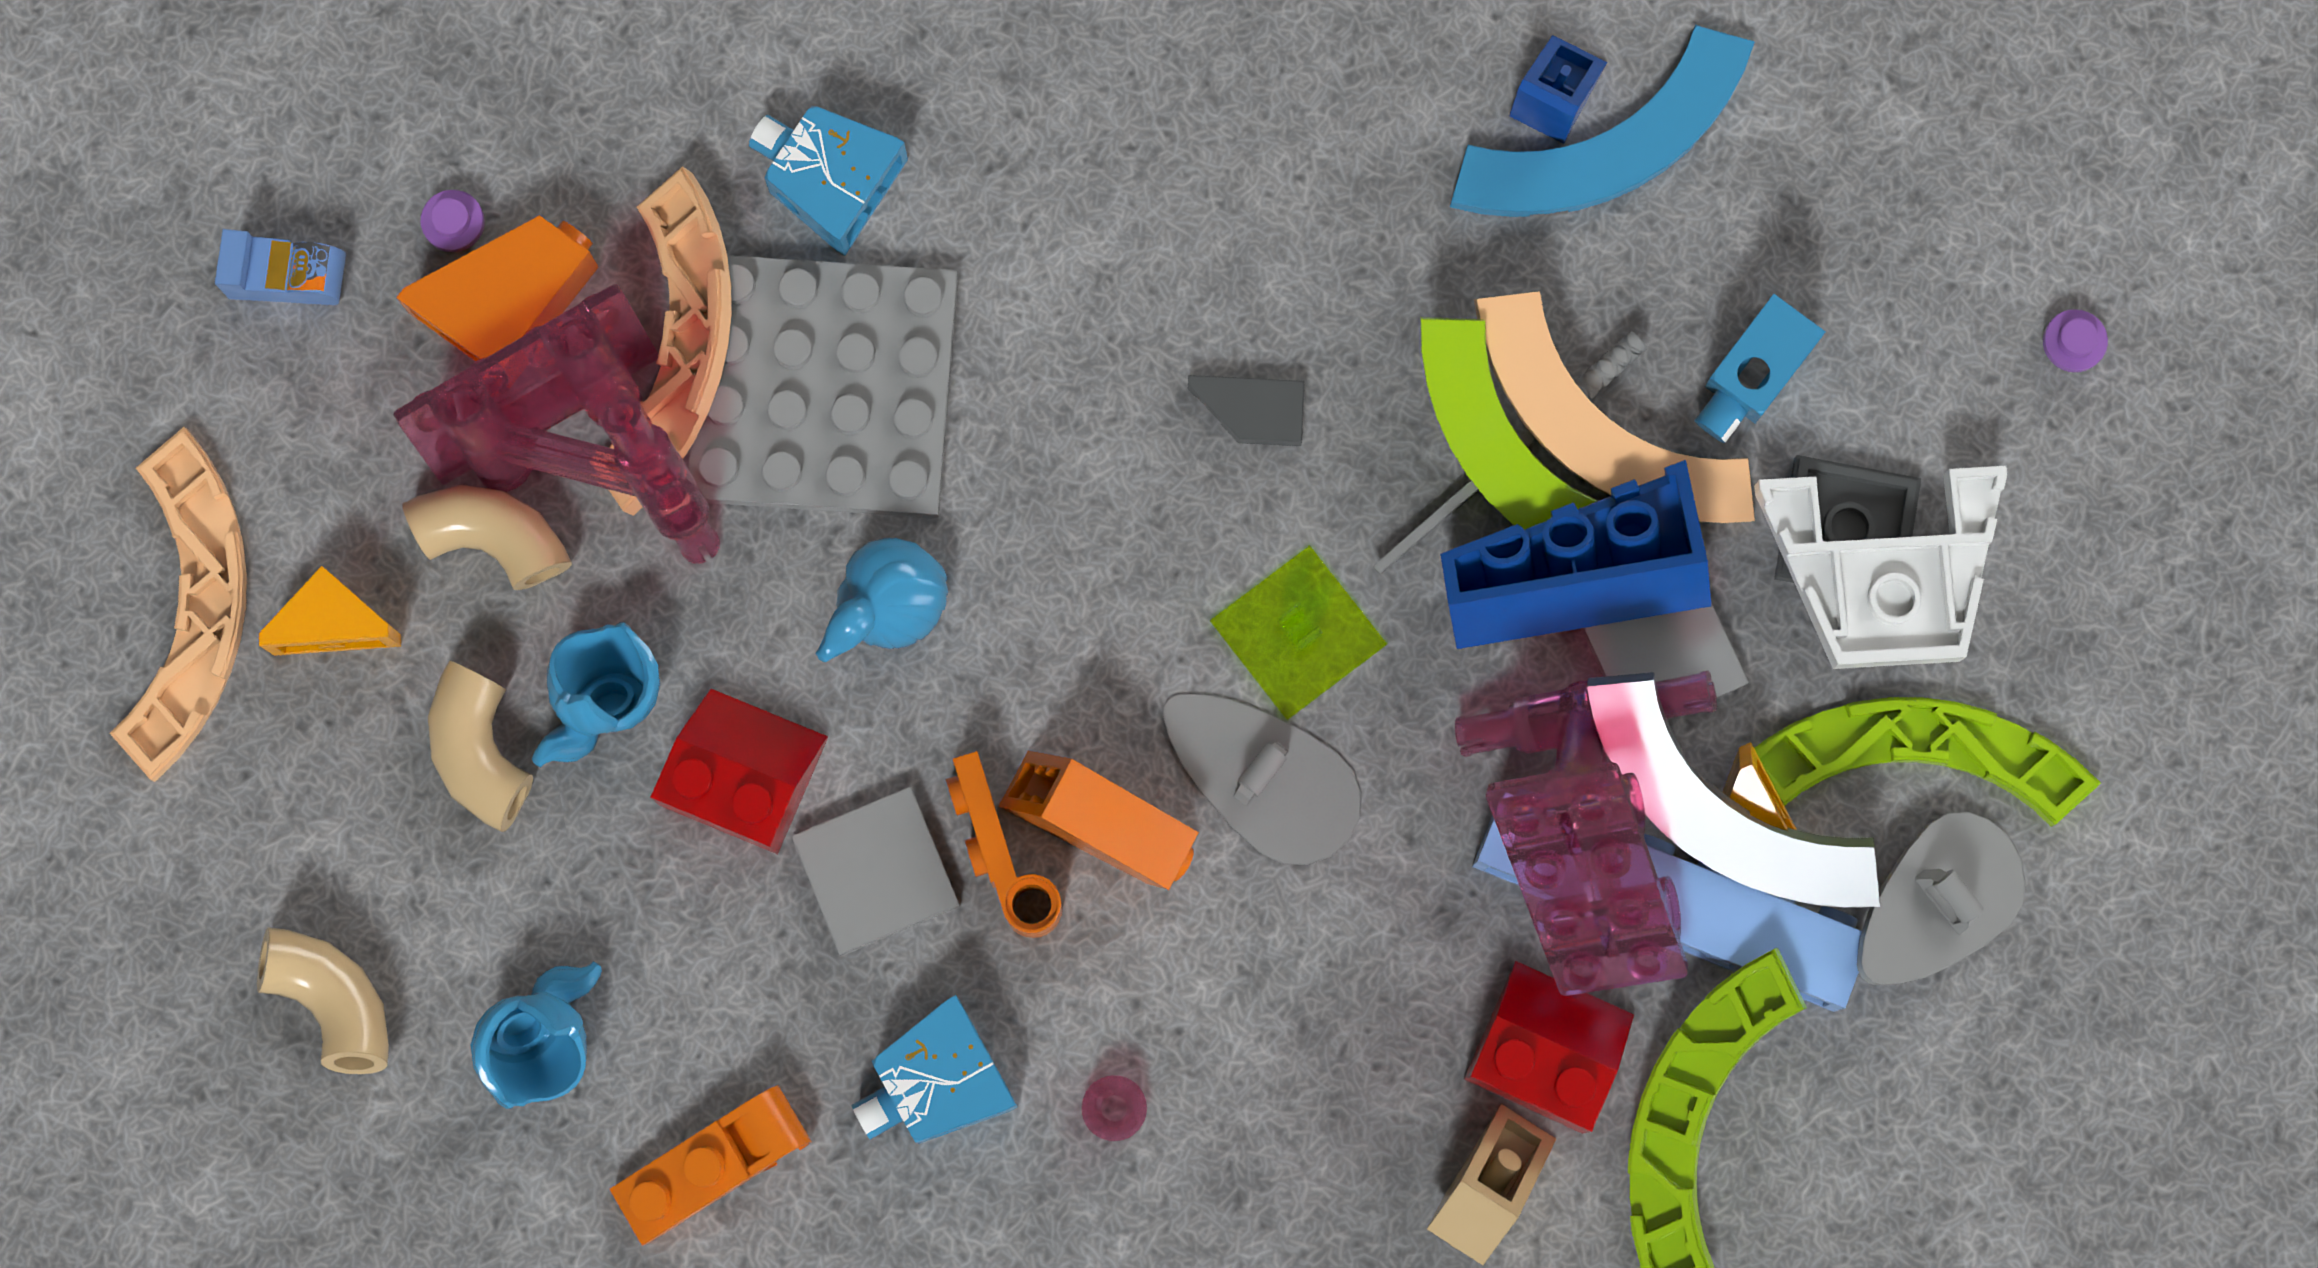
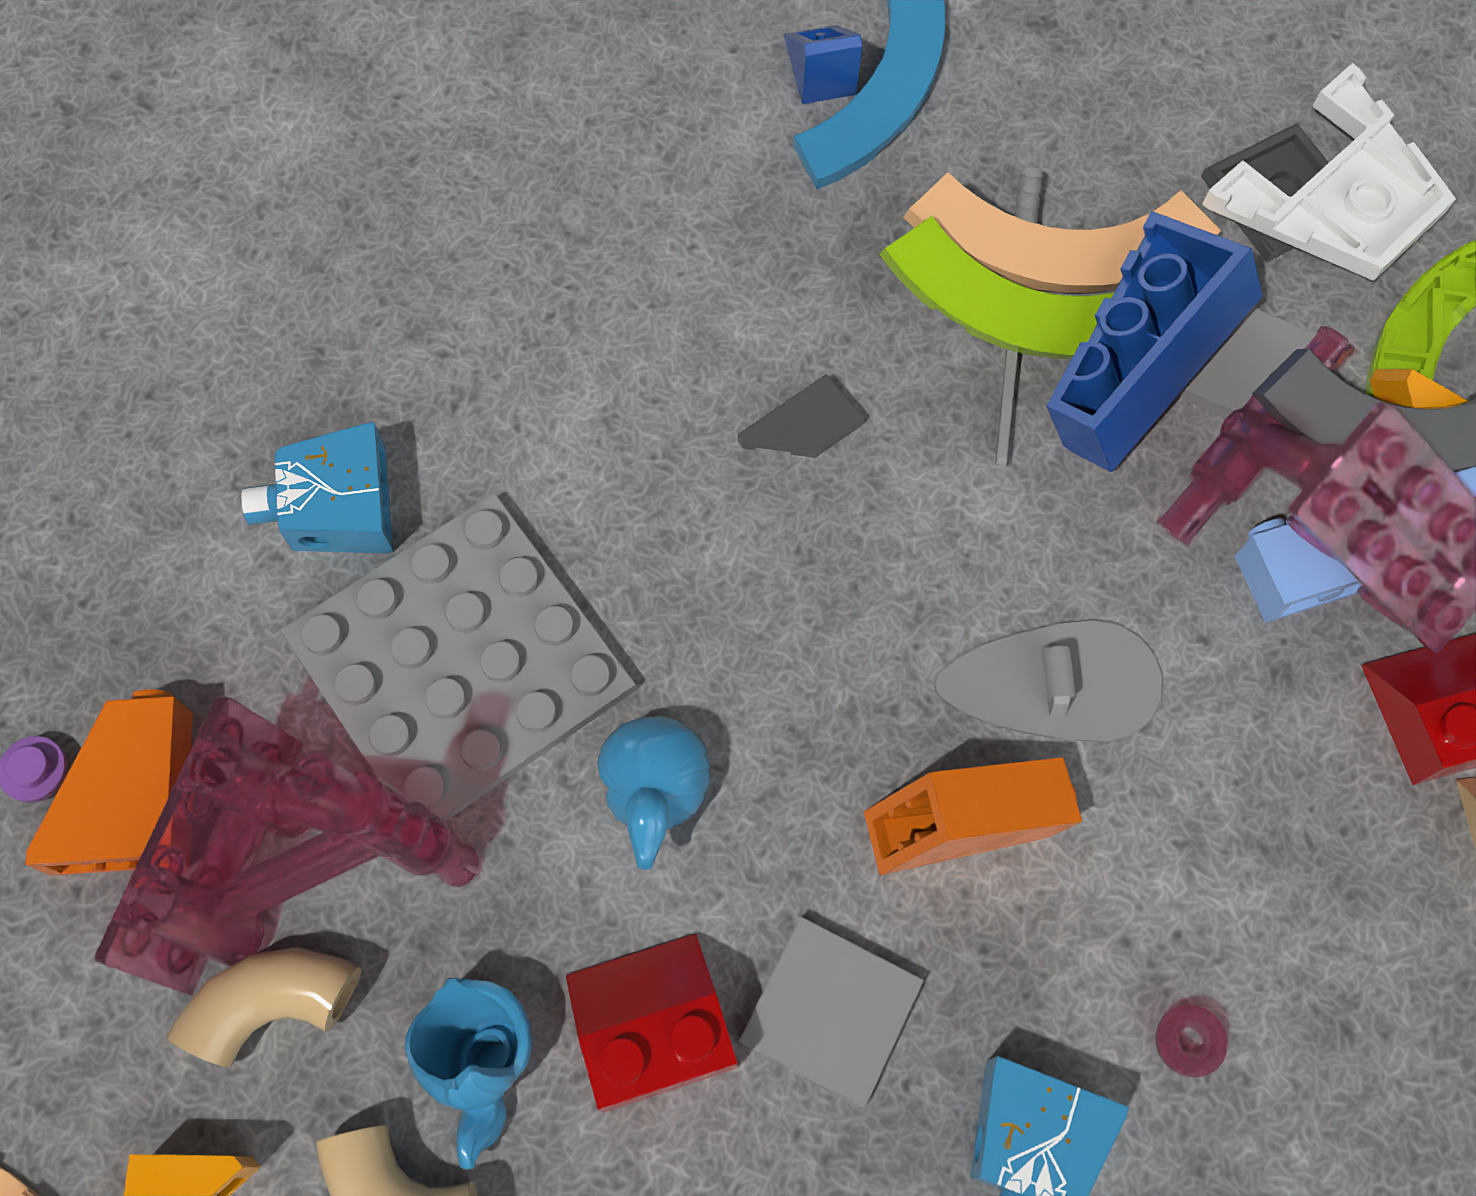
camera: 40 degrees left, 10 degrees down
(698, 313) = (304, 673): light nougat tile -> none
(989, 849) = (914, 913): orange plate -> none
(1298, 632) = (983, 557): clear neon green piece -> none
(1780, 339) = (1137, 86): dark azure torso -> none

